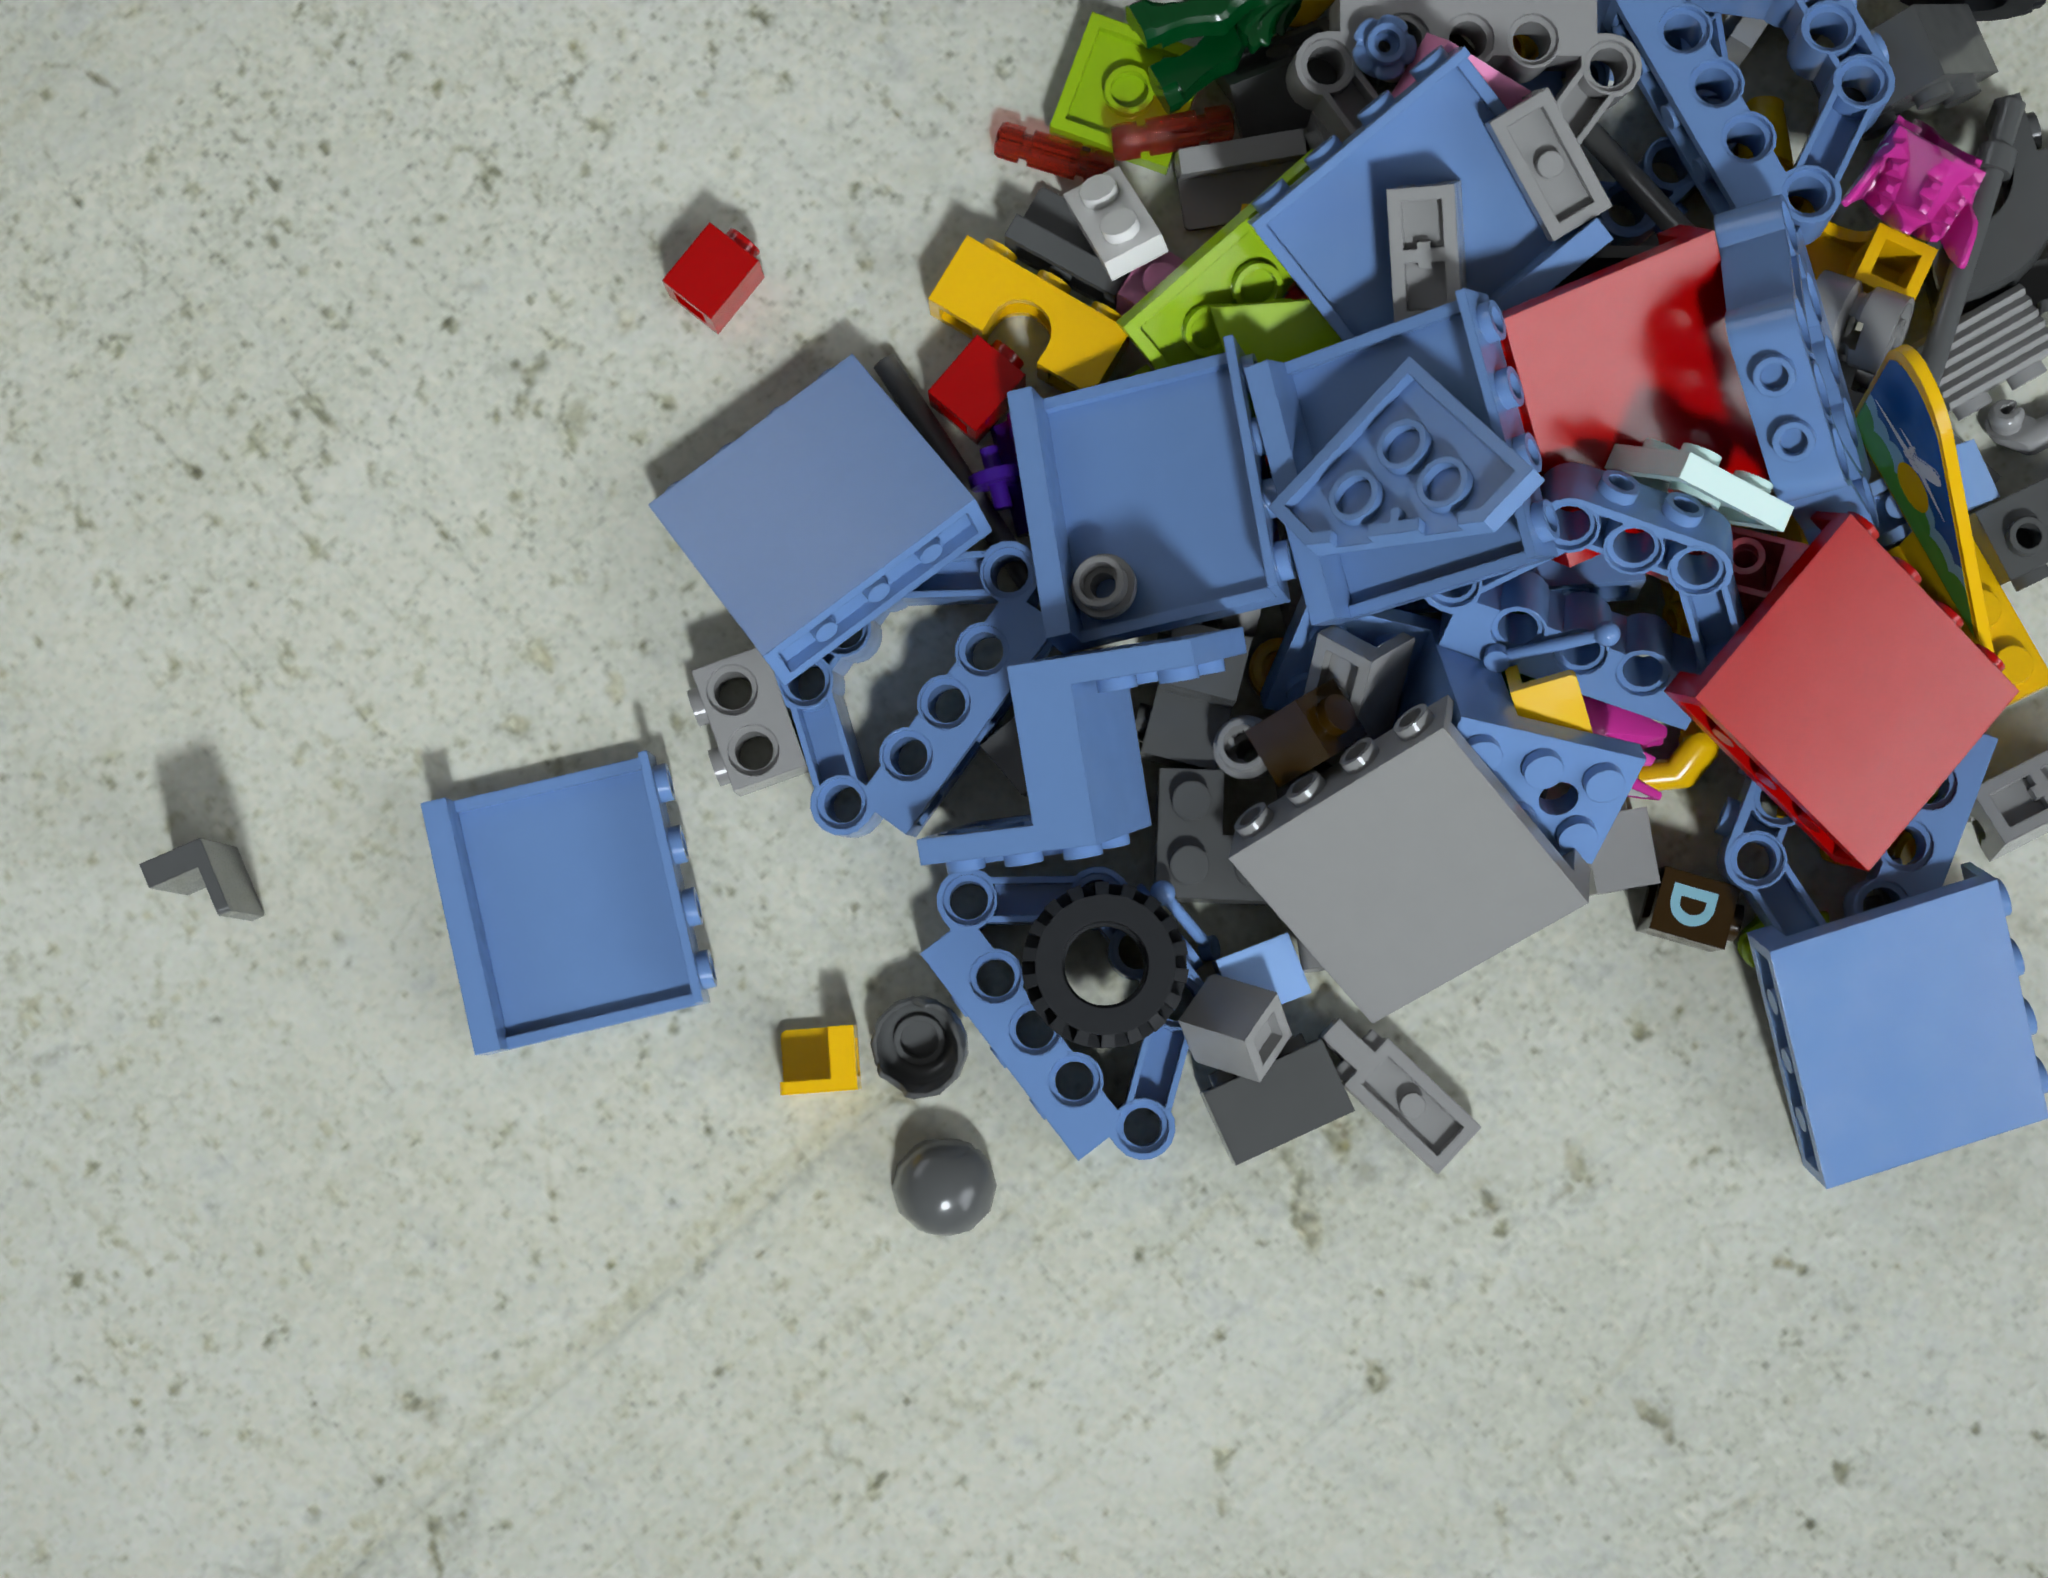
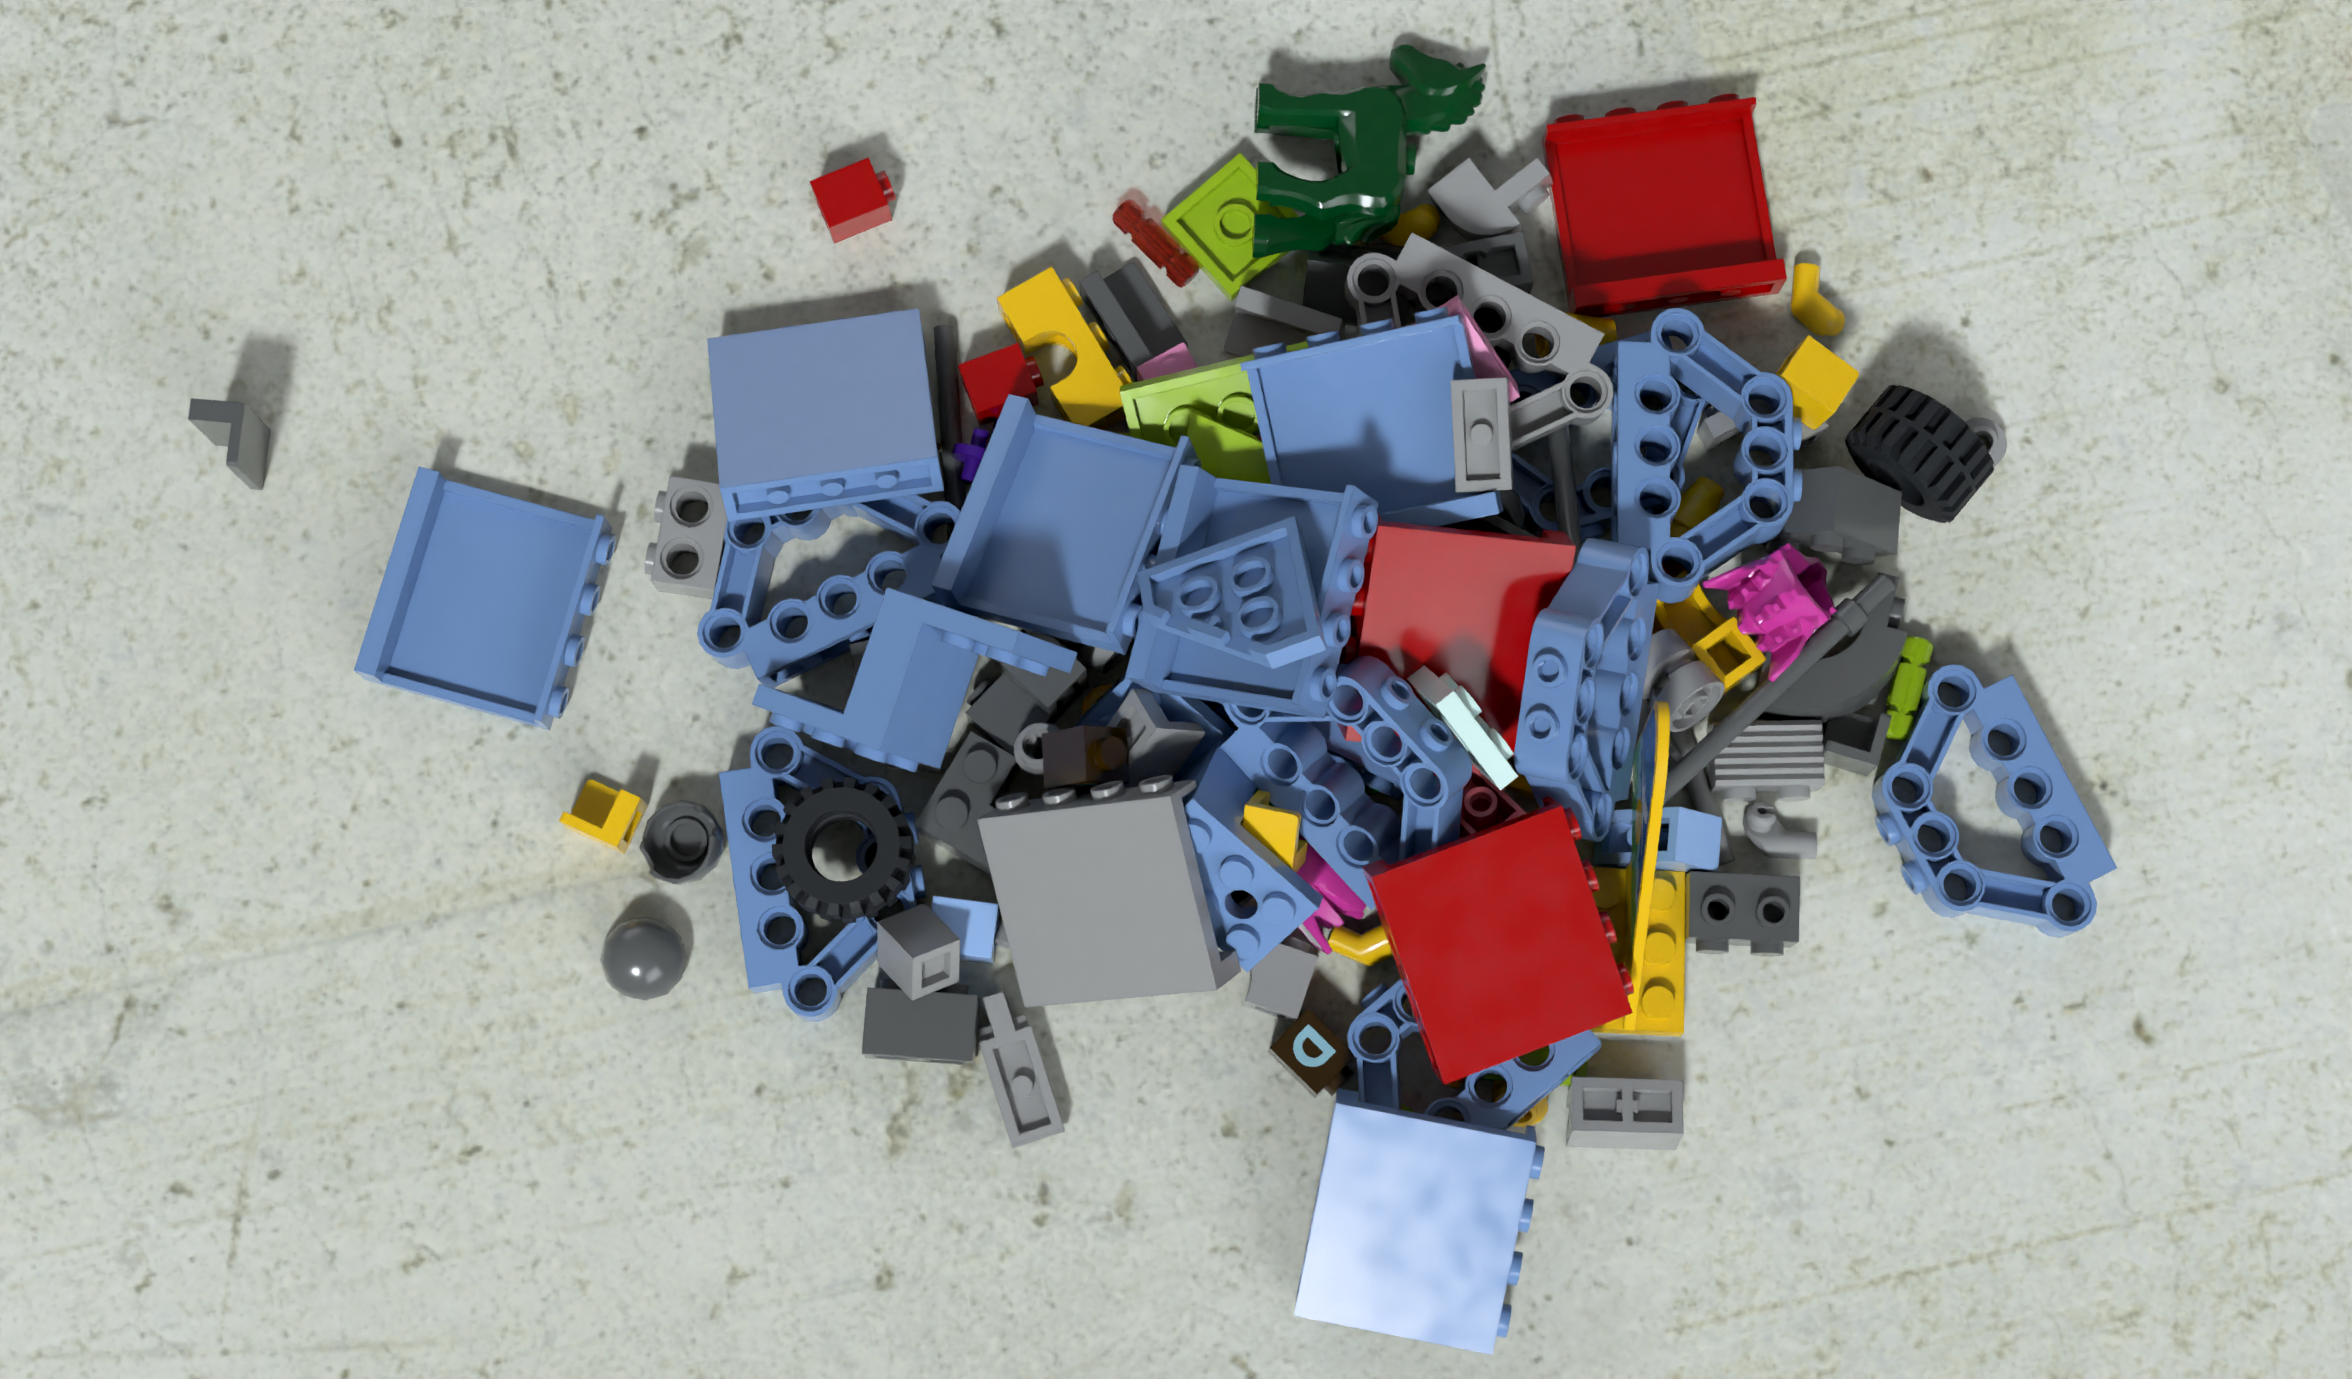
camera: 25 degrees right, 5 degrees down
(1091, 574) = (992, 559): light grey plate -> none
(1115, 223) = (1165, 315): white plate -> none
(1171, 132) = (1246, 271): clear red axle -> none
(1207, 945) = (919, 823): medium blue hinge -> none
(1378, 63) = (1416, 273): medium blue plate -> none
(1425, 246) = (1363, 445): light grey hinge -> none
(1498, 656) = (1258, 778): medium blue hinge -> none

